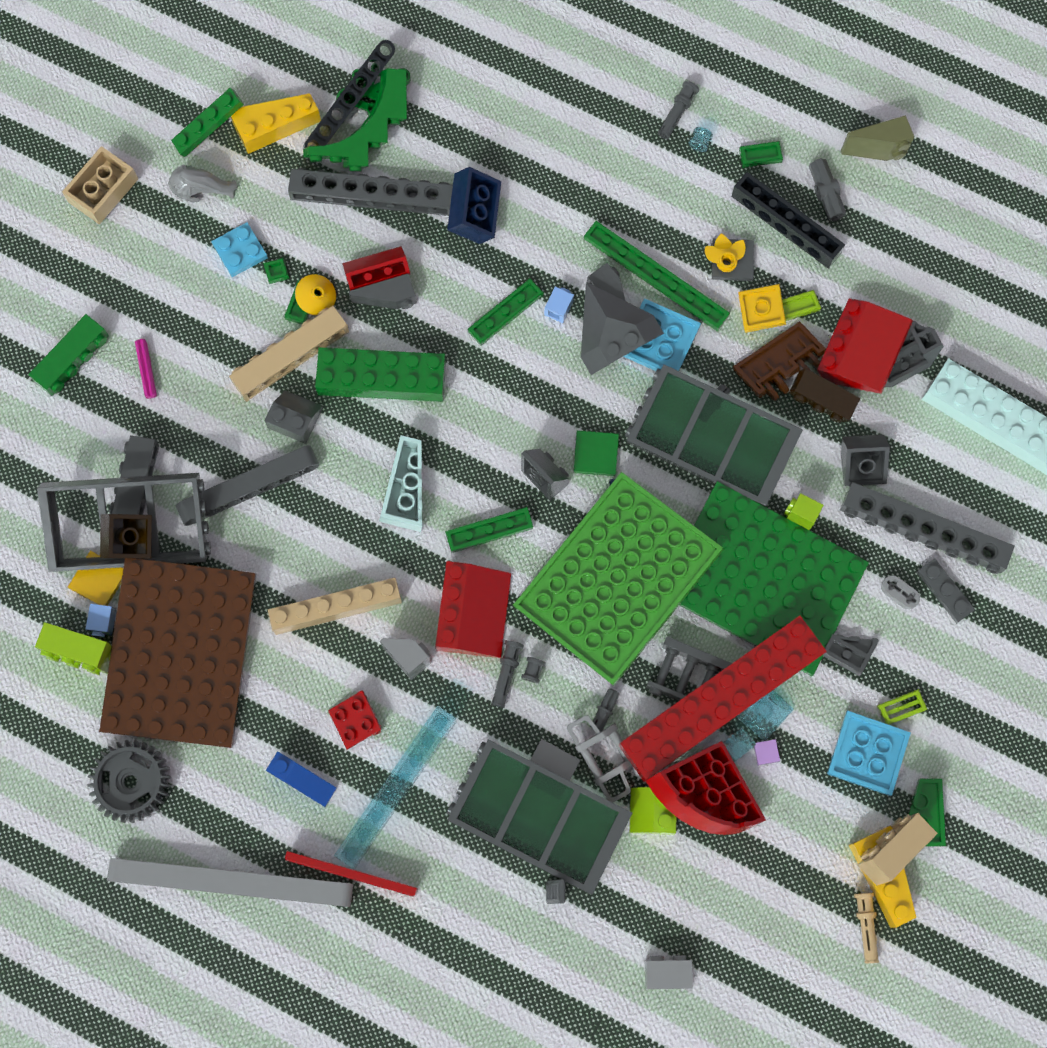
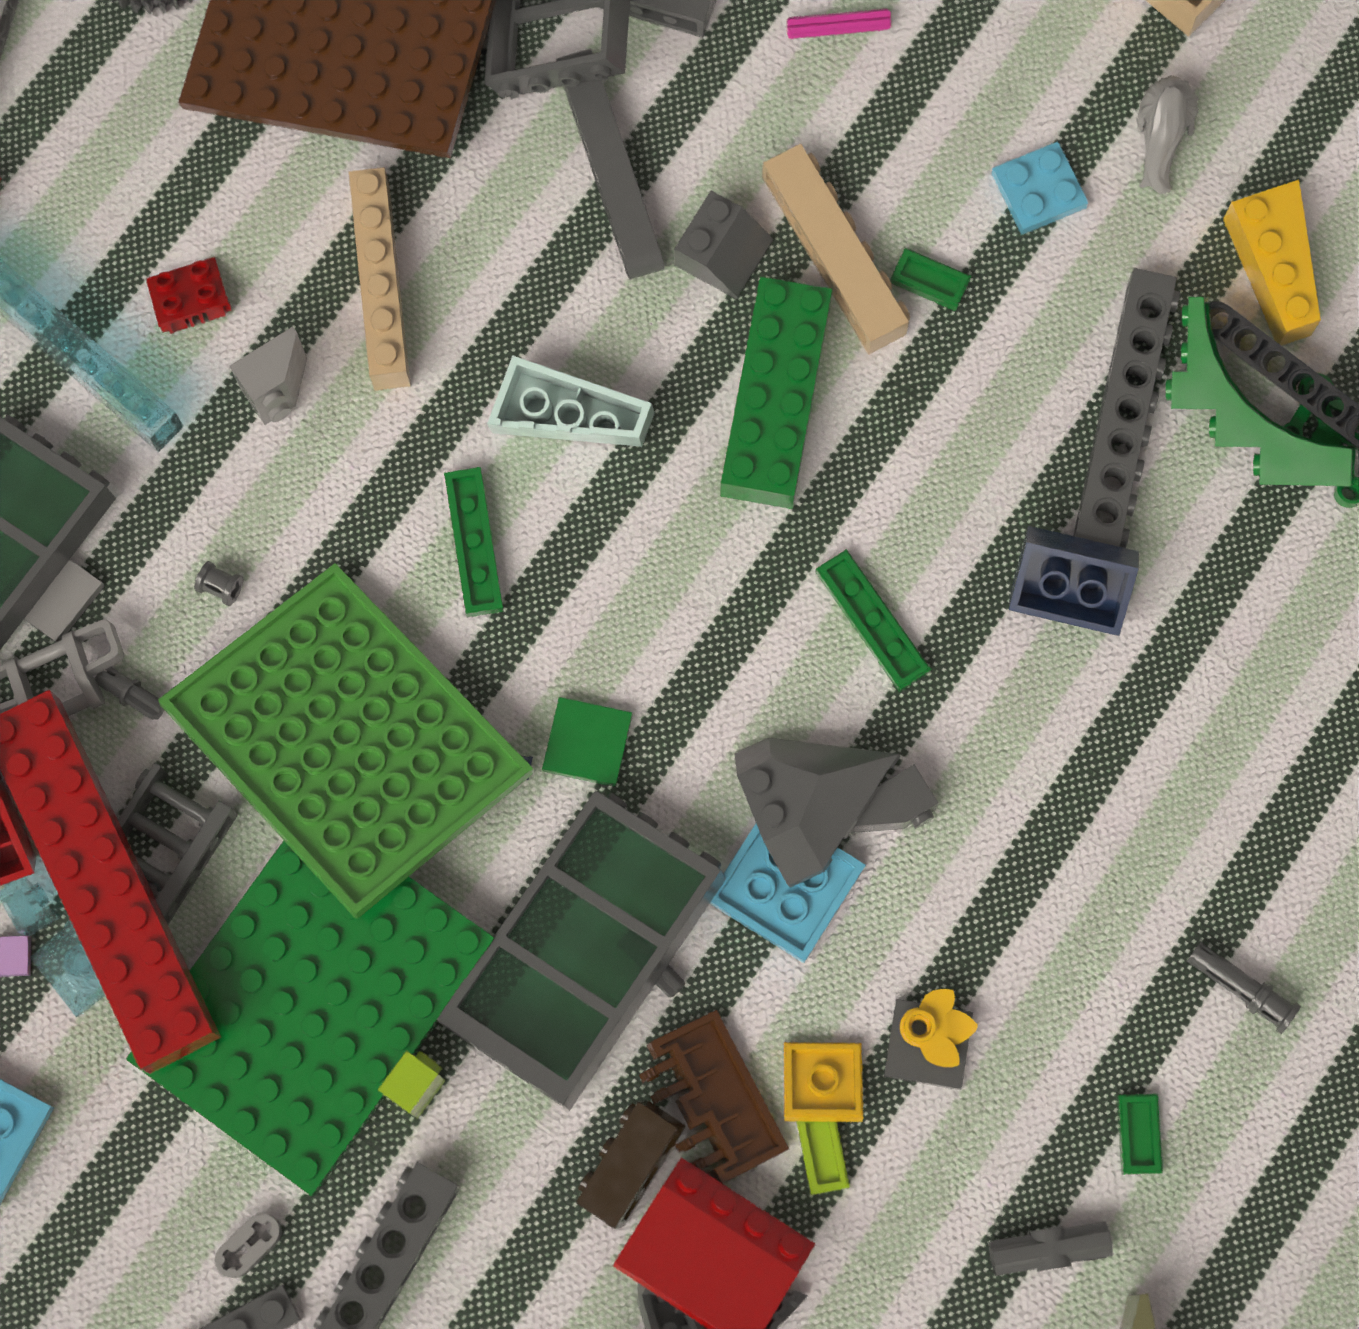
camera: 100 degrees right, 0 degrees up
(207, 122) = (1280, 147): green plate -> none
(276, 270) = (993, 244): green tile -> none
(301, 779) = (108, 199): blue slope -> none
(308, 300) = (958, 305): yellow dish -> none
(376, 268) = (972, 403): red brick -> none
(391, 293) = (926, 433): dark grey slope -> none
(473, 610) = (338, 497): red slope -> none
(509, 663) = (237, 545): dark grey pin -> none
(543, 472) = (555, 637): dark grey slope -> none
(559, 304) = (873, 712): light blue brick -> none
(656, 276) = (908, 896): green plate -> none
(700, 139) = (1177, 1019): clear light blue wheel -> none
(787, 220) = (990, 1156): black brick -> none
(850, 652) = (155, 1133): dark grey wing -> none
(865, 459) = (503, 1222): dark grey slope -> none
(885, 714) = (58, 1208): lime tile -> none

